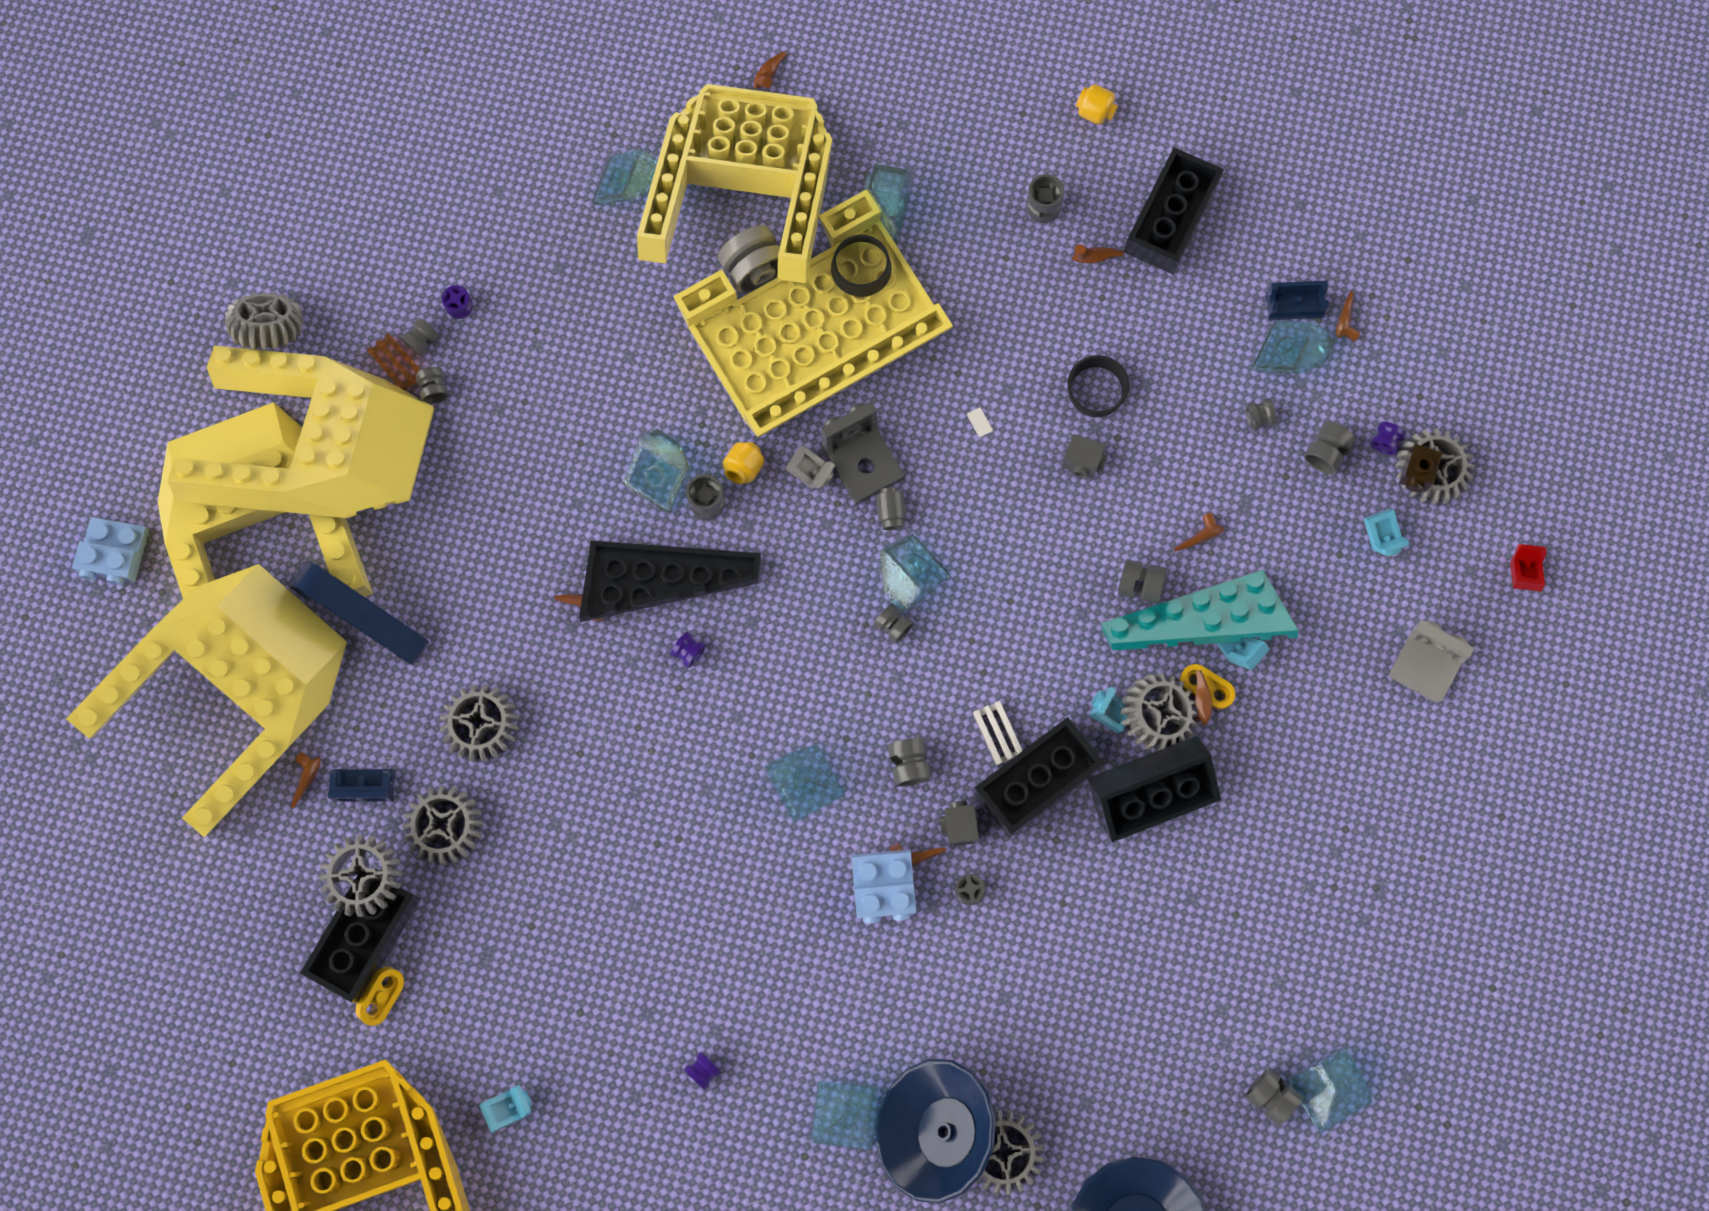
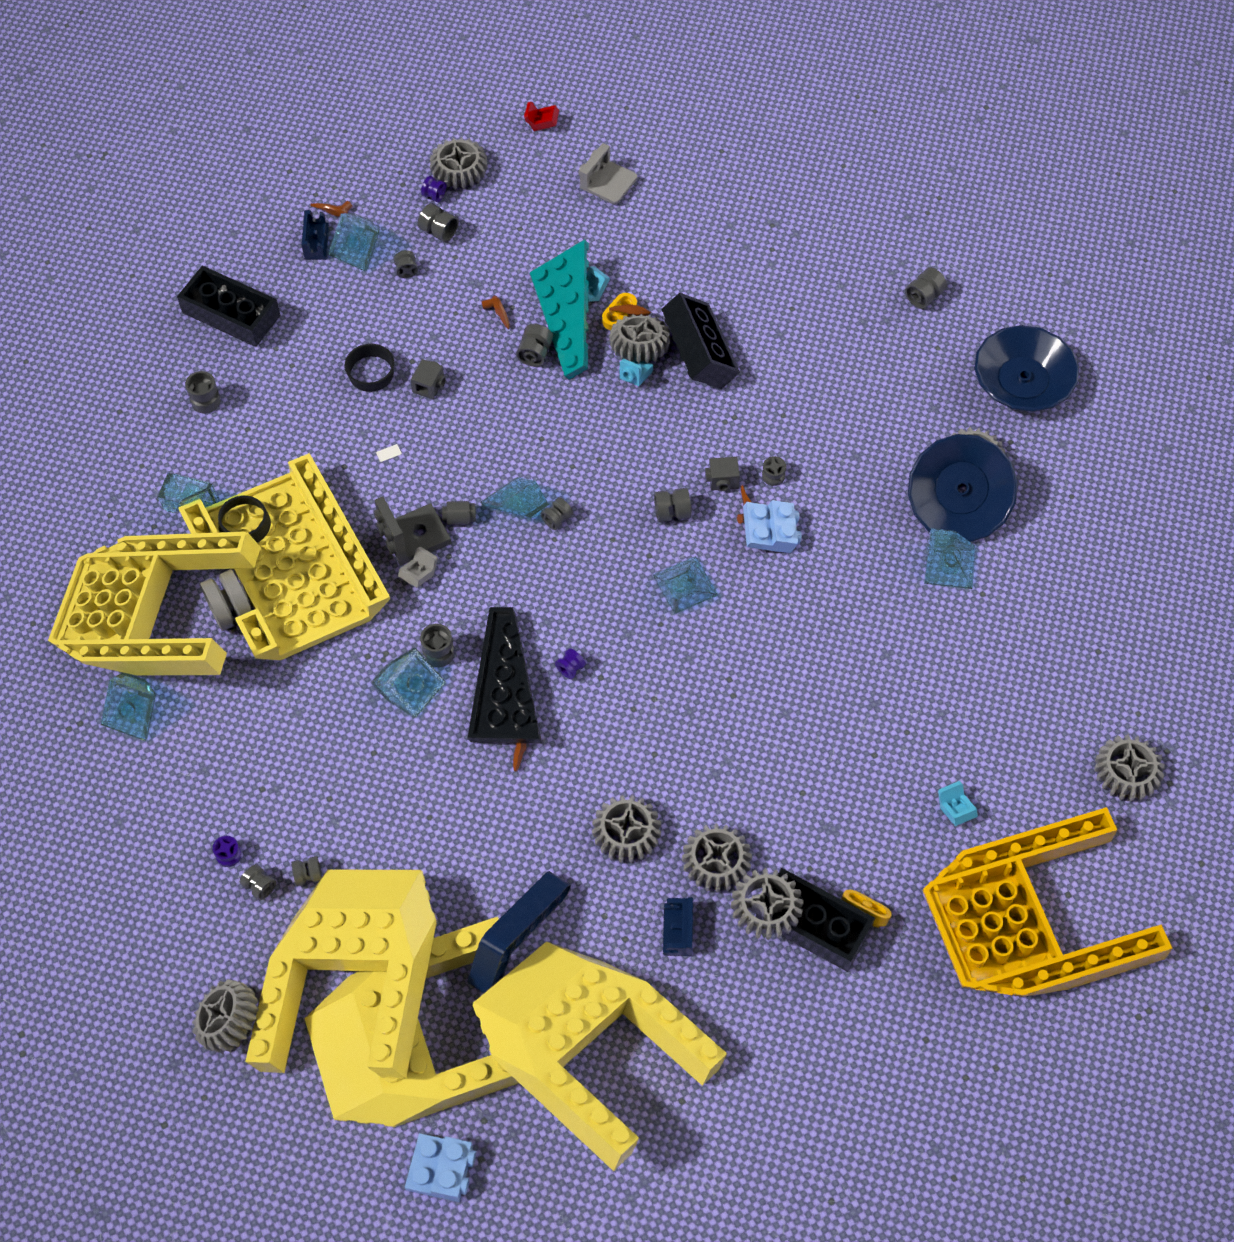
camera: 90 degrees left, 15 degrees down
(309, 772) = (670, 977): dark orange bar -> none
(381, 346) = (290, 887): clear orange tile -> none
(702, 1070) = (920, 658): dark purple wheel -> none
(743, 462) = (408, 618): yellow head -> none
(767, 71) = (47, 599): dark orange bar -> none
(1008, 728) = (648, 446): white tile -> none
(1038, 777) = (688, 417): black brick -> none
(1094, 254) = (255, 366): dark orange bar -> none
(1096, 104) = (124, 353): yellow head -> none
(1332, 1089) = (914, 254): clear light blue slope -> none
(1385, 533) = (508, 197): medium azure bracket -> none
(1420, 468) = (463, 161): dark brown brick -> none

